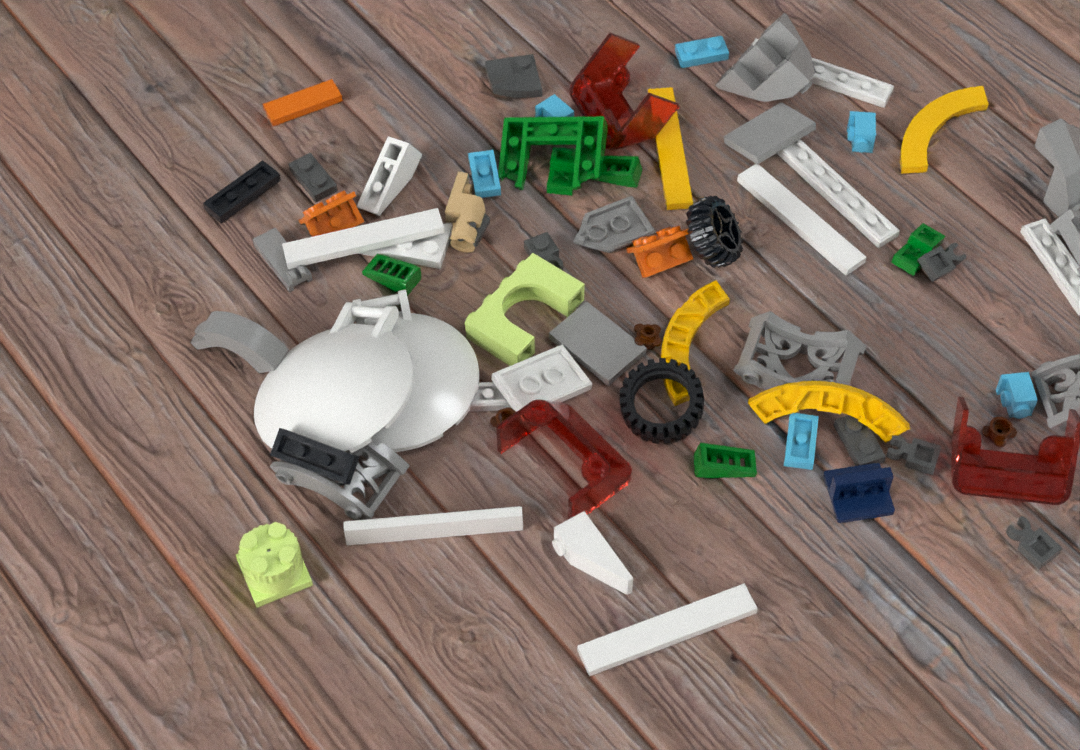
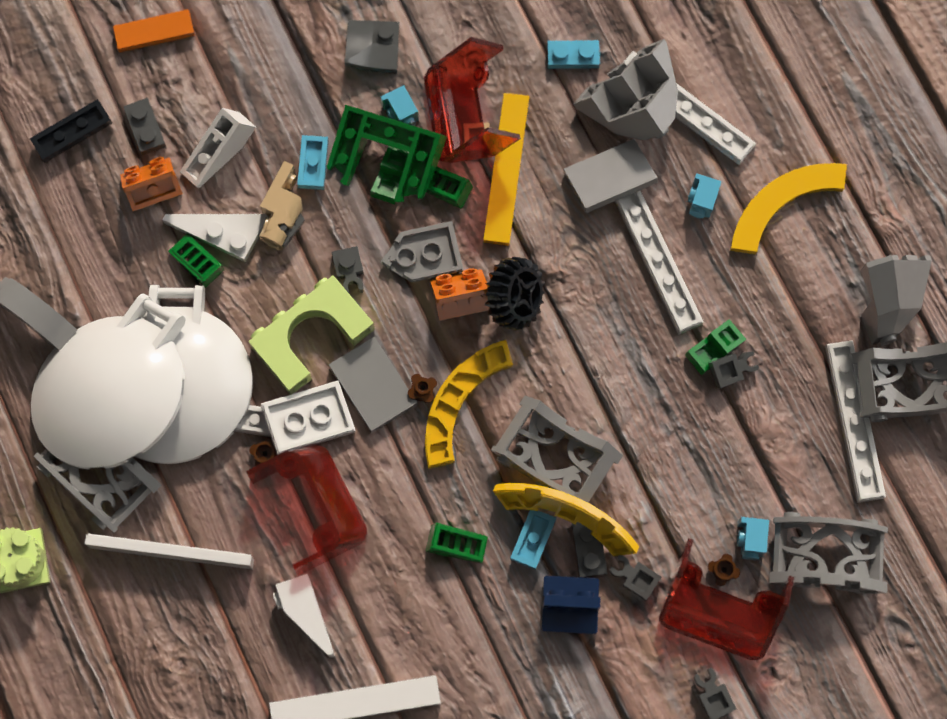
camera: 10 degrees right, 20 degrees up
(271, 249) = (94, 218): light grey hinge -> none
(314, 456) = (70, 466): black plate -> none
(363, 238) = (174, 218): white tile -> none
(655, 371) = (382, 457): black tyre -> none
(801, 219) = (611, 285): white tile -> none

